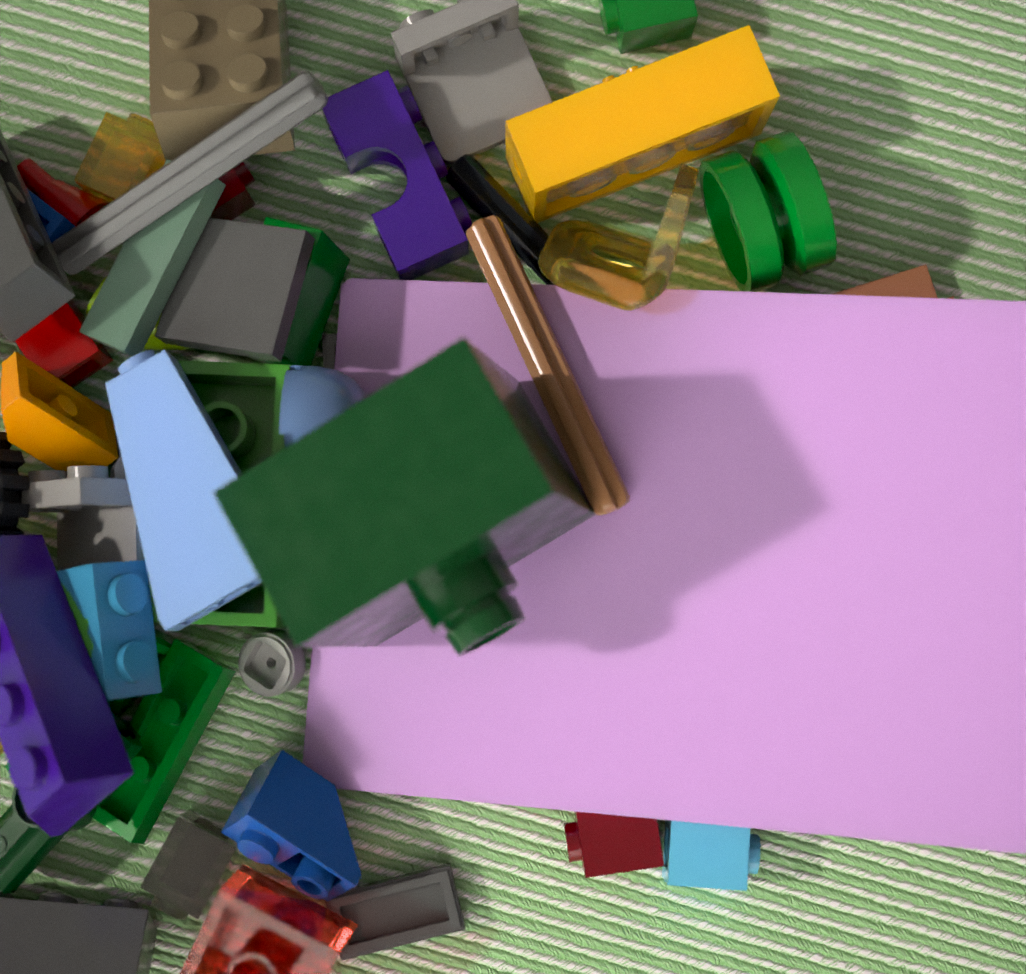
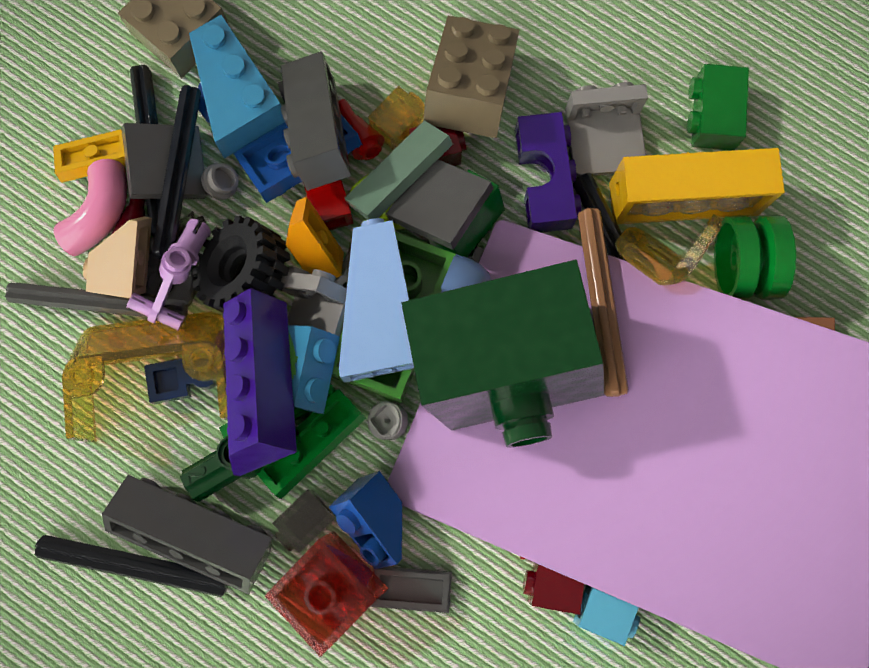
camera: 20 degrees right, 5 degrees down
(191, 172) = (438, 129): axle -> none

